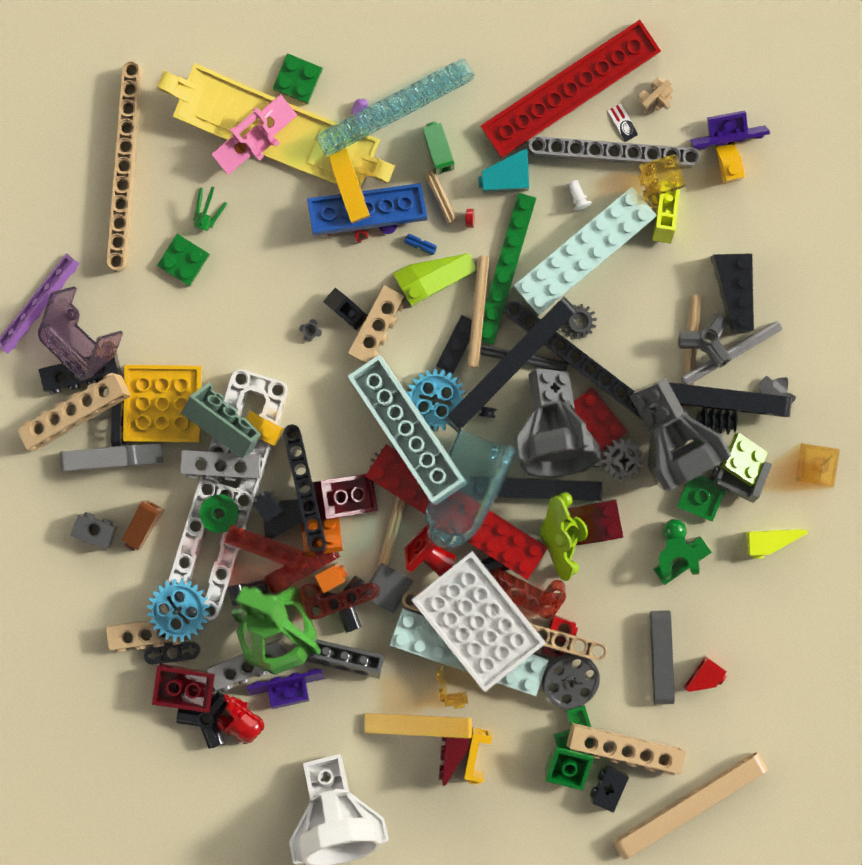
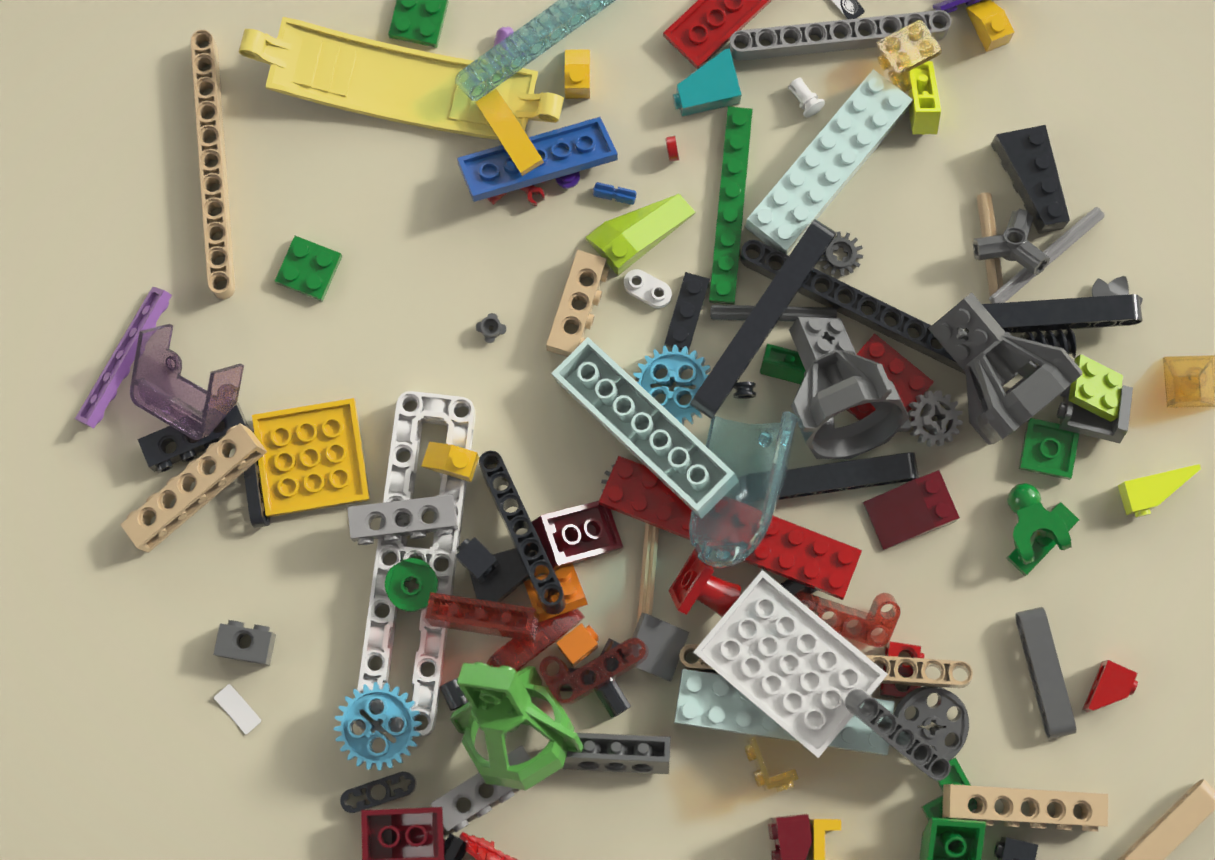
camera: 15 degrees left, 10 degrees down
(82, 575) = (237, 709): none -> white sticker
(111, 457) = (252, 536): beam -> none
(116, 633) = (297, 777): tan brick -> none
(142, 524) = (309, 622): dark orange slope -> none
(201, 219) = (325, 212): green plant -> none
(221, 421) = (394, 458): sand green wedge -> none
(258, 139) = (380, 98): bright pink piece -> none
(287, 690) = (546, 812): dark purple bracket -> none
(345, 308) = (532, 290): black slope -> none
(409, 144) = (577, 74): none -> yellow slope
(418, 725) = (736, 824): yellow tile -> none
(431, 321) = (646, 289): none -> white plate
(438, 148) = (616, 69): slope -> none
(440, 196) = (629, 130): tan axle -> none
(478, 312) = (706, 263): tan axle -> none
(519, 396) = (782, 364): none -> green slope
(544, 686) = (888, 729): none -> dark grey beam
(561, 535) = (877, 528): lime piece -> none

